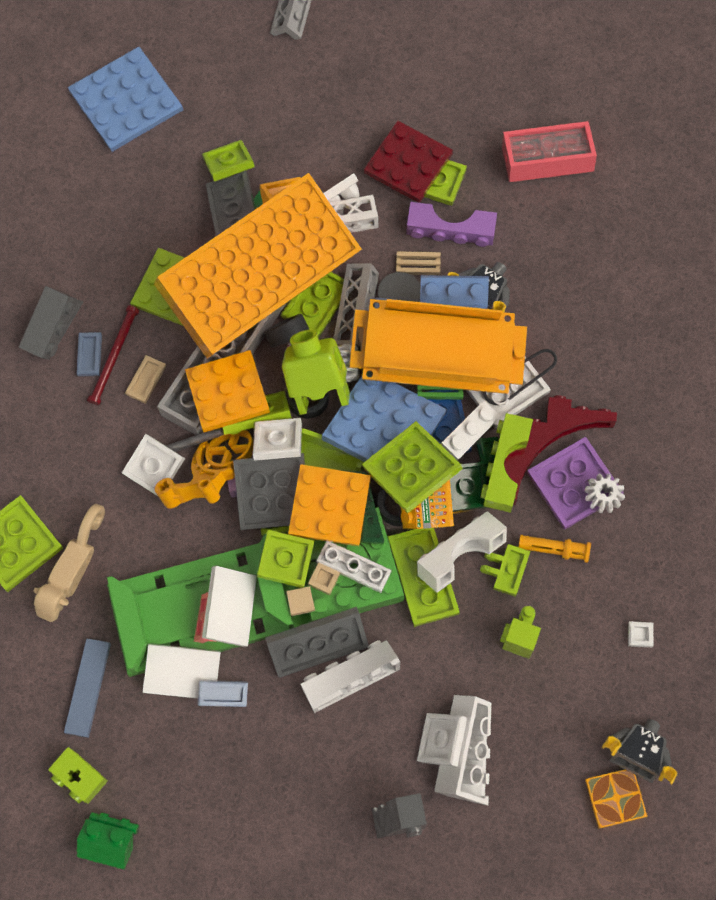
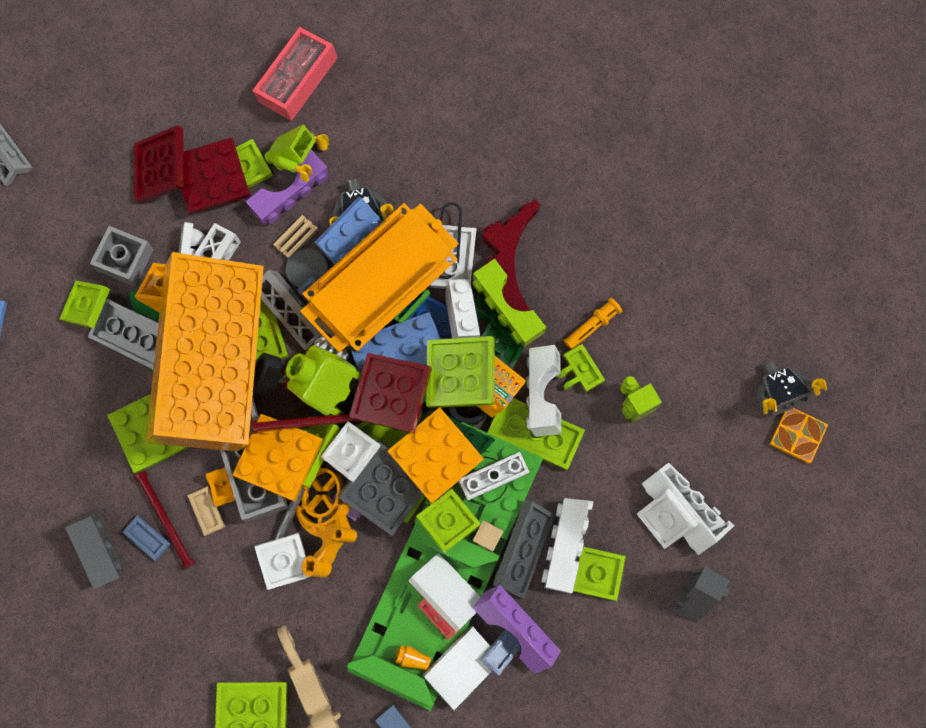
camera: 55 degrees left, 5 degrees up
(155, 623) = (411, 658): none -> light orange cone
(170, 371) = (220, 487): none -> light orange bracket
(244, 715) = (500, 609): none -> medium lavender arch
(272, 387) = (301, 422): none -> dark red bar
(287, 153) = (122, 256): none -> light grey brick
(324, 578) = (485, 505): tan tile -> none
(349, 428) = (390, 392): none -> dark red plate
(349, 721) = (599, 573): none -> lime plate
(381, 118) = (158, 165): none -> dark red plate
(484, 199) = (292, 149): none -> lime torso
(564, 481) = (558, 271): medium lavender plate -> none
(607, 486) = (579, 252): white gear -> none
(640, 634) = (700, 320): white tile -> none

